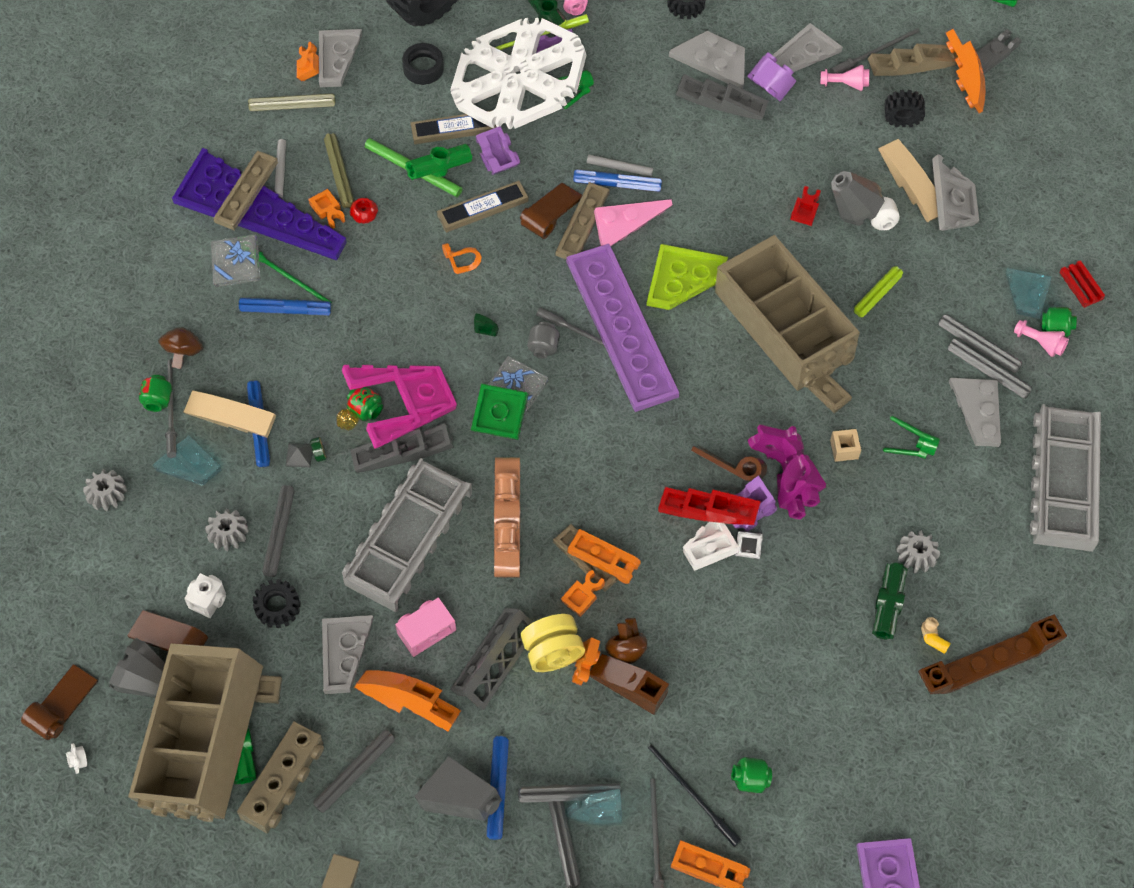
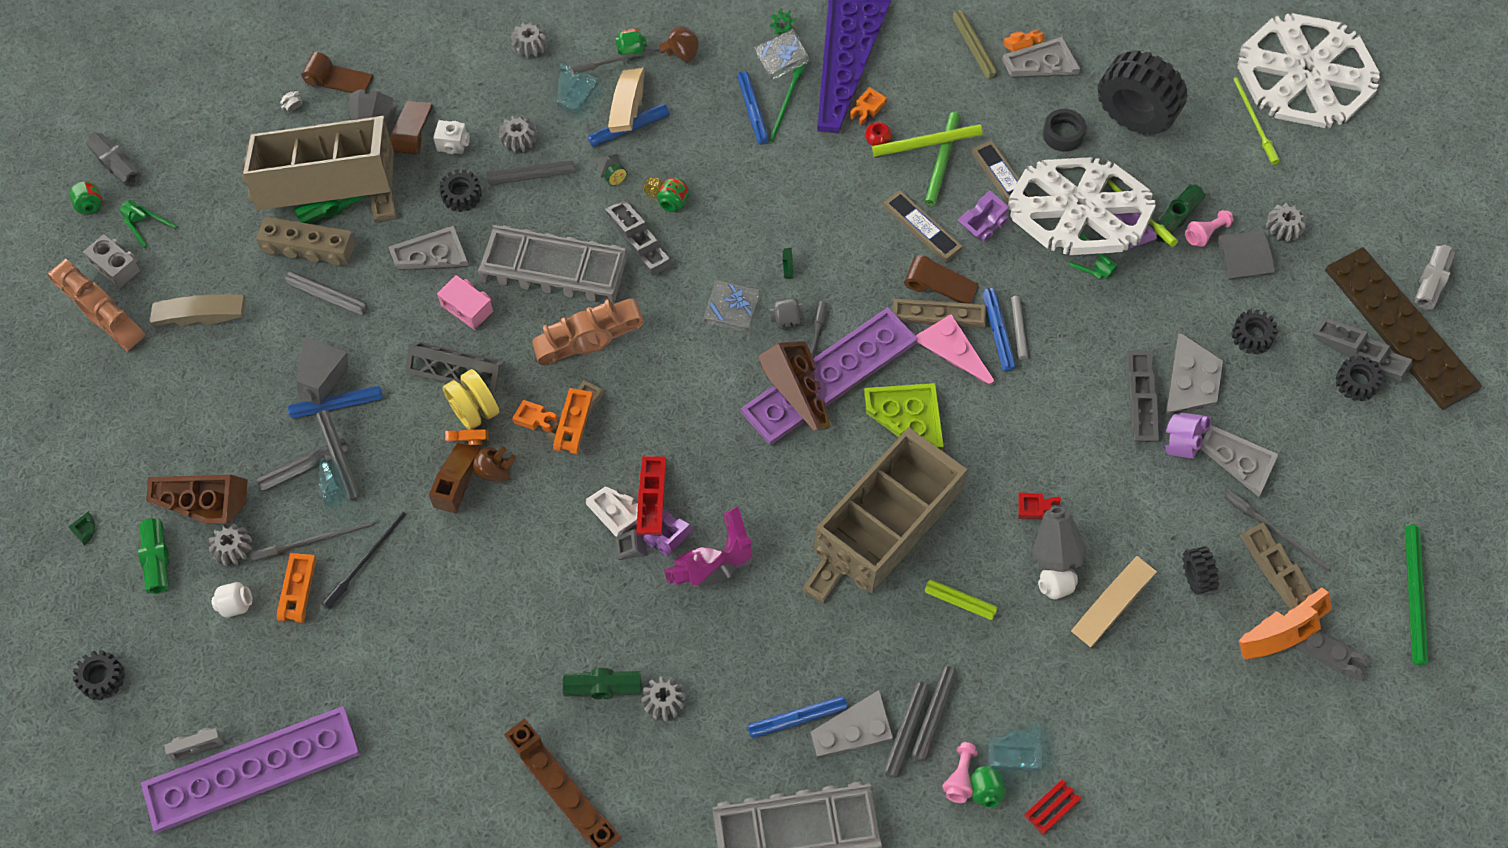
camera: 75 degrees right, 0 degrees up
(194, 249) = (785, 17): none -> green gear
(245, 190) = (857, 37): dark tan tile -> none
(280, 168) = (898, 59): light grey bar -> none
(338, 170) = (914, 102): olive axle -> none
(391, 172) = (927, 140): none -> lime piece
(402, 691) = (398, 310): orange slope -> none
(422, 391) = (695, 235): dark pink wing -> none
(438, 161) = (950, 172): green piece -> none
(450, 254) = (854, 215): orange piece -> none
(499, 411) = (698, 299): green tile -> none
(615, 352) = (791, 372): none -> reddish brown wedge
(746, 469) = (703, 503): reddish brown door -> none
(751, 775) = (390, 599): green head -> none
(847, 439) = (764, 597): tan plate -> none
(856, 77) = (1225, 517): bright pink piece -> none
(926, 443) = (791, 682): green plant -> none
(931, 636) = (577, 732): arm -> none
(954, 197) = (1105, 646): light grey wing -> none
(959, 449) = (797, 717): none -> blue axle

